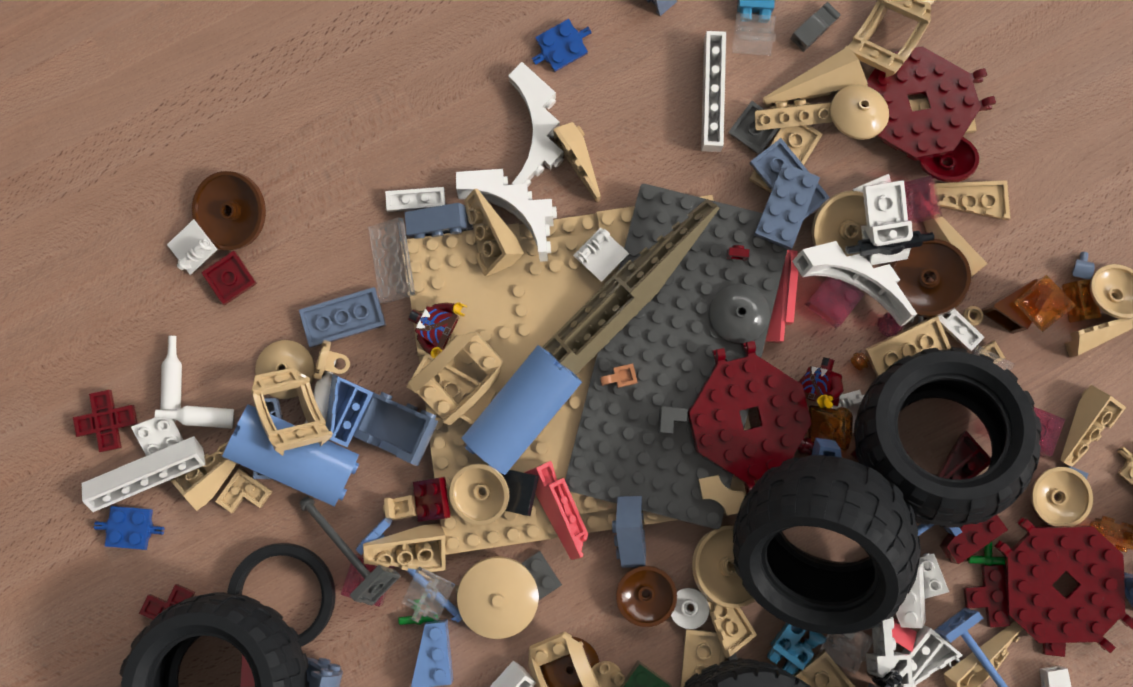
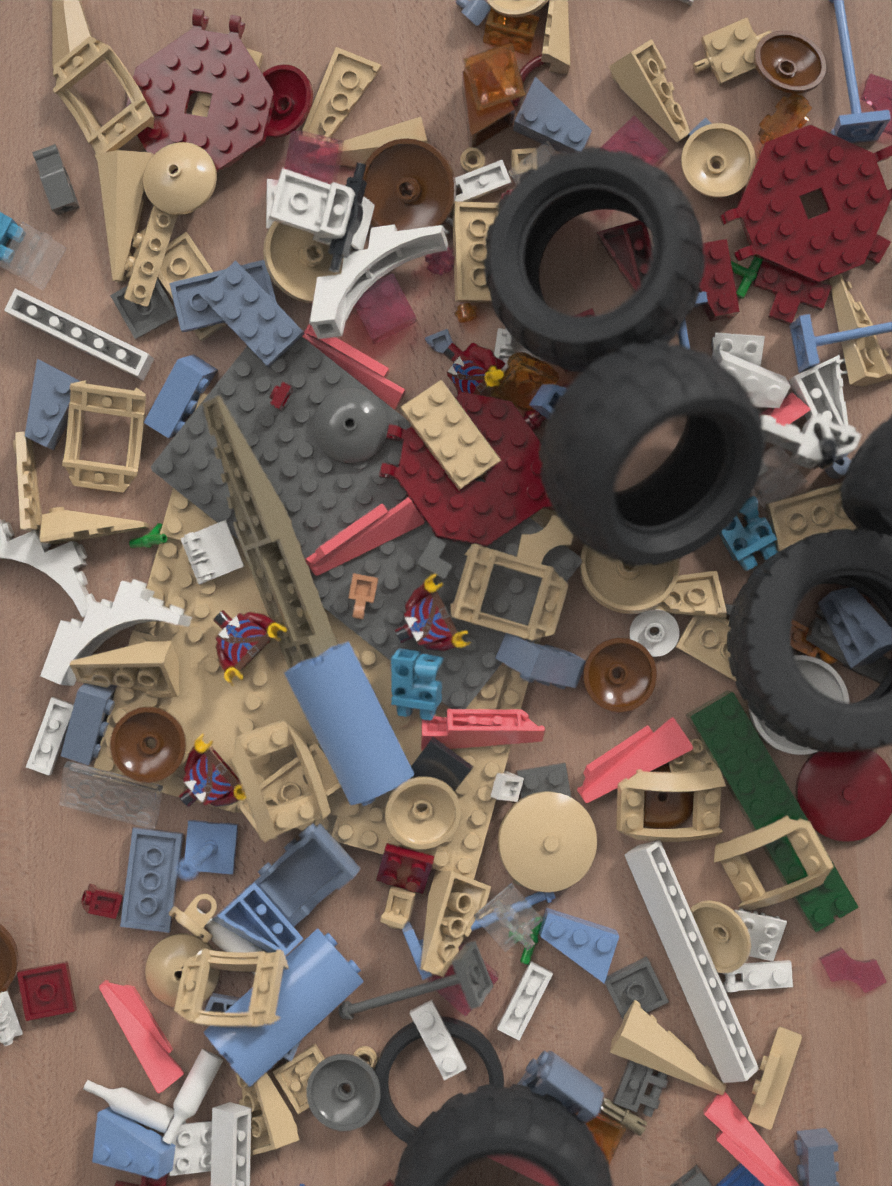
camera: 65 degrees left, 5 degrees up
(140, 389) = (130, 1147): none -> medium blue wedge
(226, 361) = (143, 1034): none -> coral wedge
(233, 525) = (333, 1104): none -> dark grey dish
(270, 533) = (367, 1051): none -> tan plate
(310, 288) = (101, 901): none -> dark red bracket
(314, 581) = (438, 1039): none -> white plate
(371, 634) = (524, 1000): none -> white plate
(383, 349) = (209, 848): none -> medium blue tile
(438, 257) = (131, 749): none -> reddish brown dish
(525, 548) = (507, 786): none -> white bracket
(547, 305) = (242, 640): none -> torso
(565, 446) = (415, 692): none -> dark azure hips
(588, 103) = (27, 483): none -> tan wing
(590, 207) = (150, 539): none -> green piece
(596, 638) = (640, 751): none -> coral wedge
(624, 435) = (429, 620): none -> torso
(654, 94) = (48, 405): none -> sand blue wedge
(664, 359) = (364, 535): none -> coral wedge
(664, 456) = (475, 582): none -> tan wedge
(675, 131) = (107, 401): none -> tan wedge
(703, 181) = (180, 395): none -> medium blue wedge
(767, 388) = (450, 434): none -> tan plate
(829, 350) = (439, 341): none -> sand blue tile
(1031, 357) = (549, 119): none -> sand blue wedge
(1057, 325) = (526, 70): none -> dark red piece

